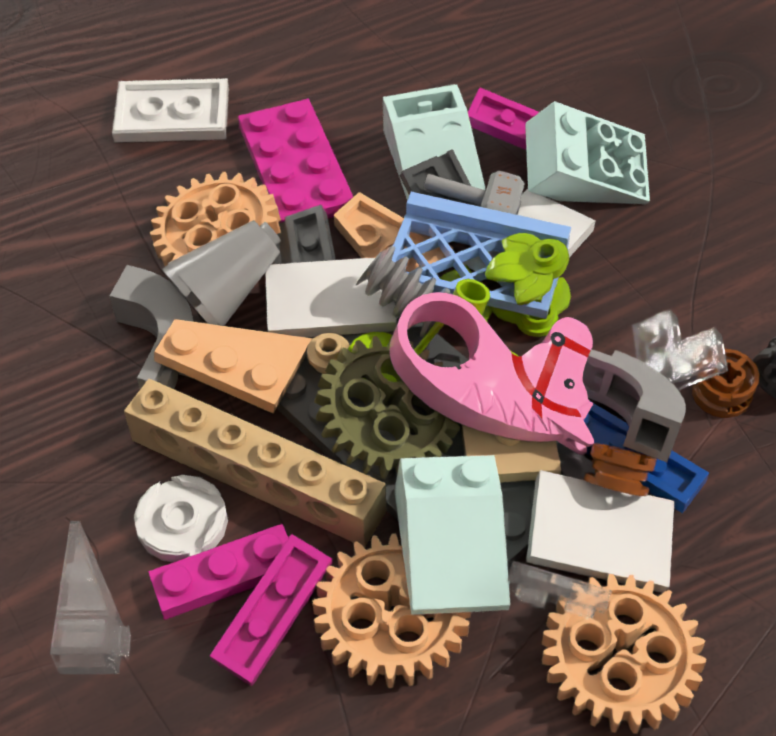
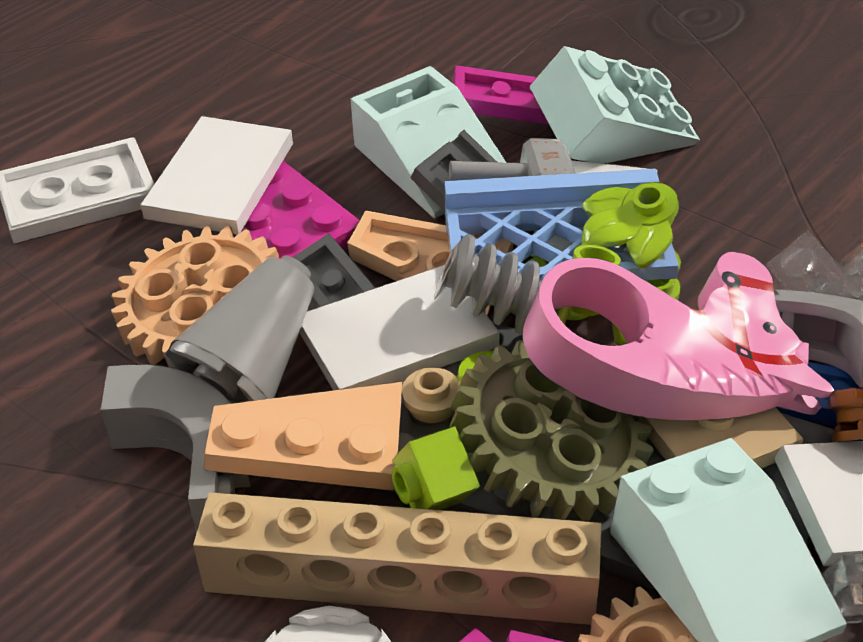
camera: 20 degrees left, 10 degrees down
(267, 131) = (217, 175): none -> white tile
(293, 412) = (434, 471): none -> lime plate

